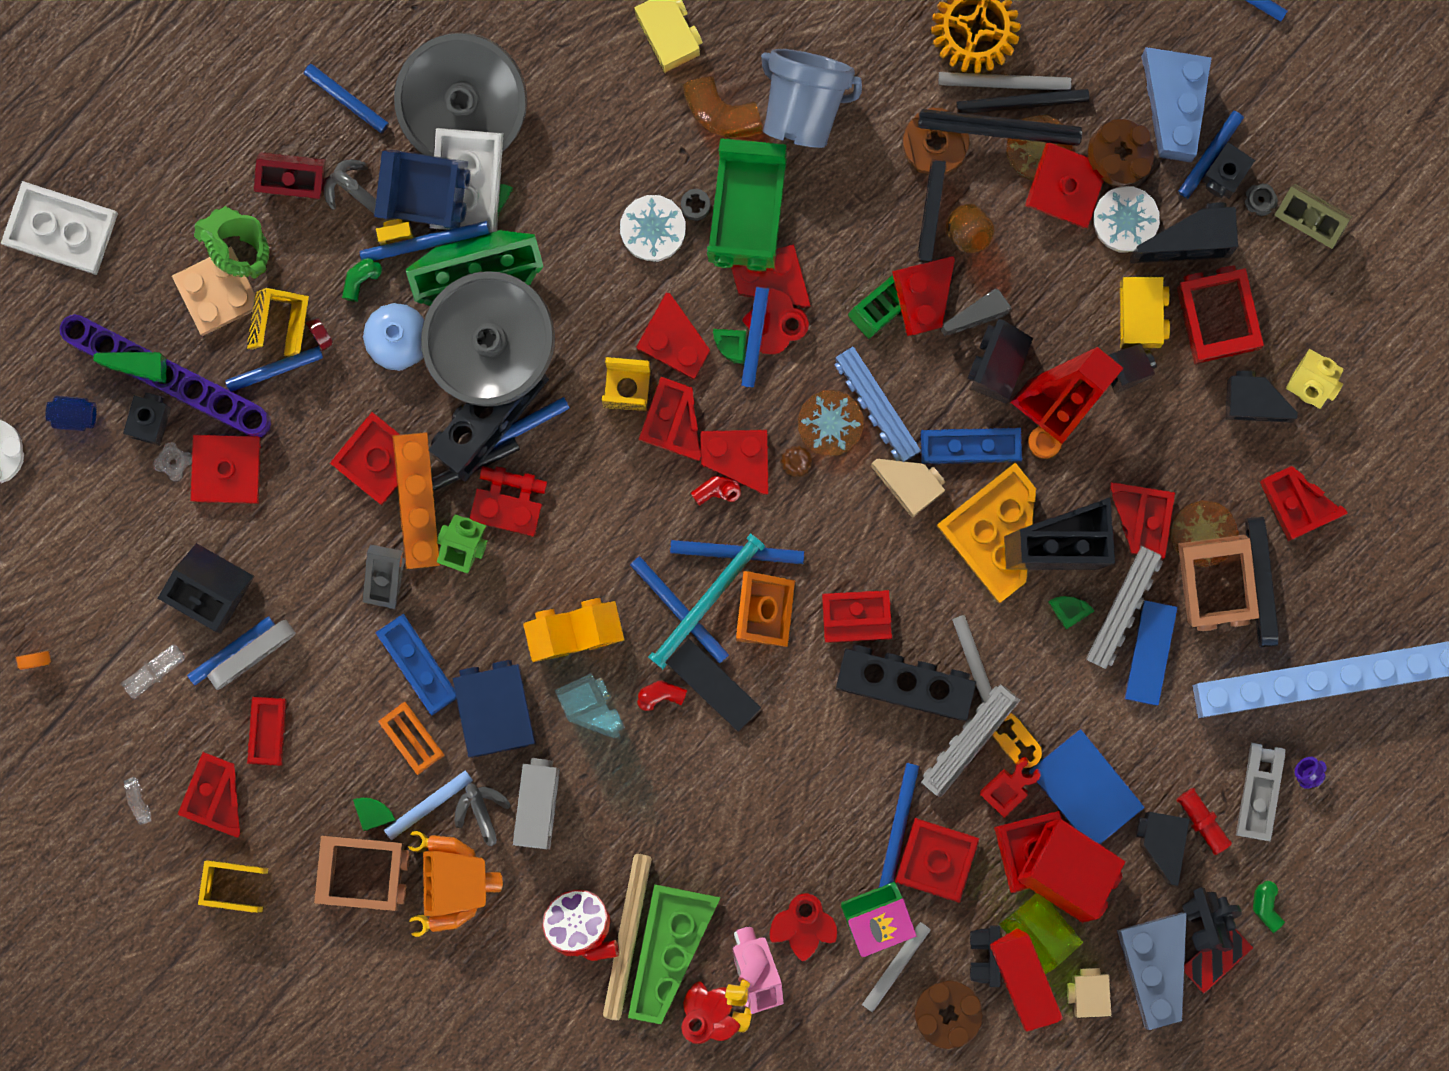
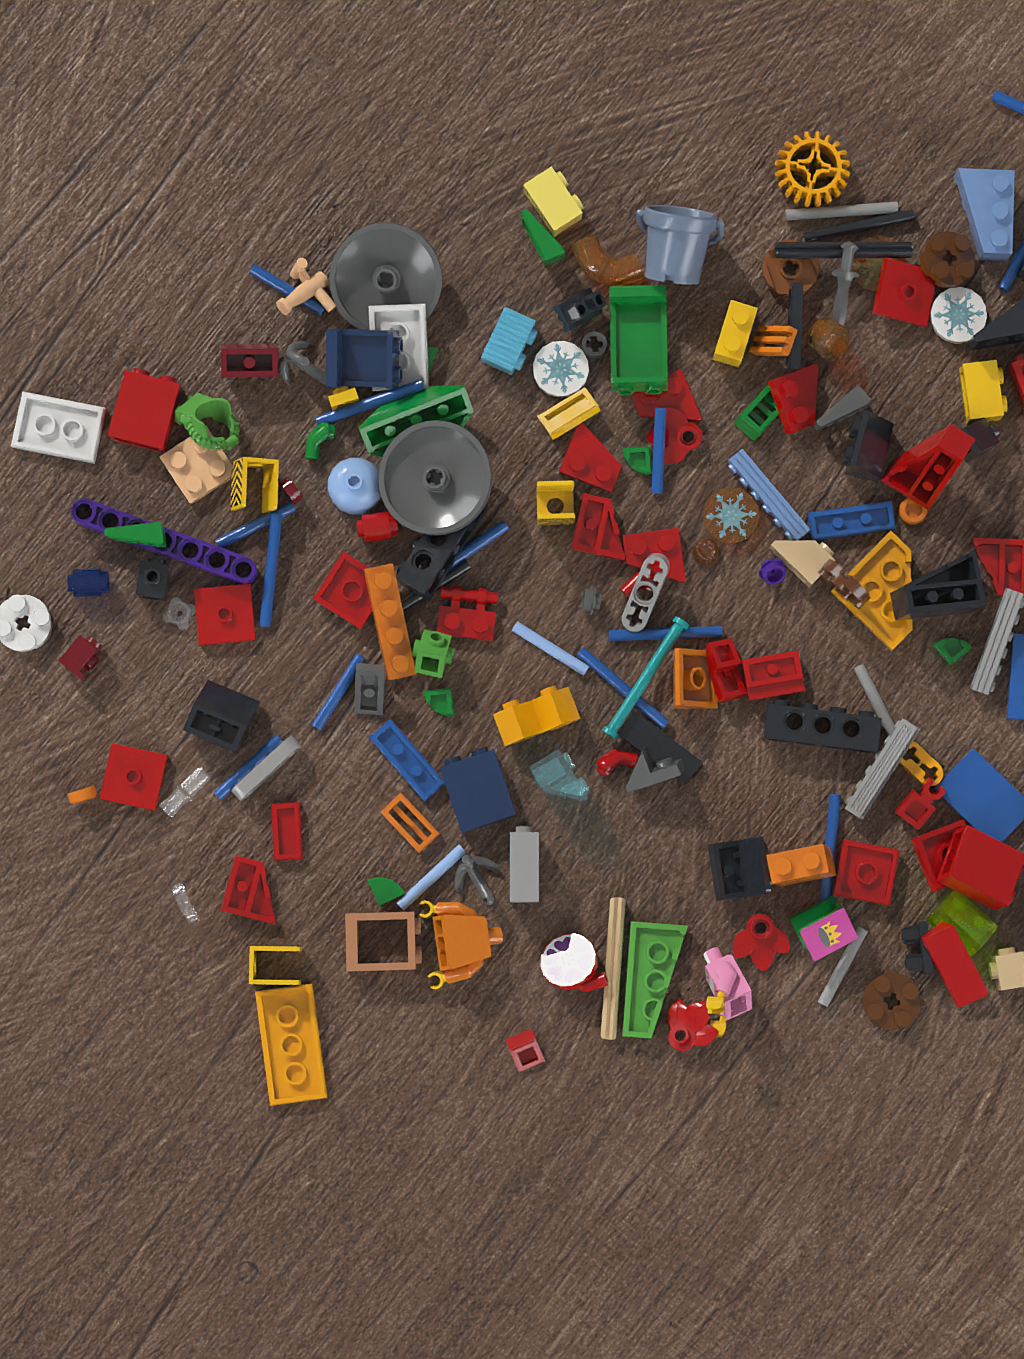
camera: 10 degrees left, 0 degrees up
(52, 498) = (81, 656): none -> dark red brick
(96, 646) = (133, 777): none -> red plate
(162, 219) = (145, 410): none -> red brick
(241, 981) = (291, 1044): none -> light orange tile
(285, 423) = (270, 570): none -> blue bar
(345, 577) = (337, 693): none -> blue bar
(370, 99) = (310, 287): none -> light nougat piece
(415, 387) = (377, 526): none -> red brick
(465, 600) = (440, 701): none -> green tile
(513, 1020) = (525, 1050): none -> red slope
(596, 188) = (509, 341): none -> medium azure brick
(600, 553) = (550, 648): none -> light blue piece
(653, 82) = (544, 243): none -> green slope
(654, 503) = (590, 600): none -> dark grey plate
(655, 281) = (568, 413): none -> yellow tile
(682, 160) = (580, 308): none -> black hips
(694, 714) = (647, 774): none -> dark grey slope
(716, 525) = (645, 613): none -> light grey beam
(788, 838) = (740, 868): none -> black bracket
(799, 601) = (723, 670): none -> red slope
(860, 843) = (801, 865): none -> orange brick
(861, 210) = (735, 333): none -> yellow brick
(871, 494) = (772, 571): none -> dark purple plate
(895, 221) = (763, 339): none -> orange tile
(950, 519) = (845, 584): none -> reddish brown plate
(996, 161) = (844, 278): none -> dark grey sword

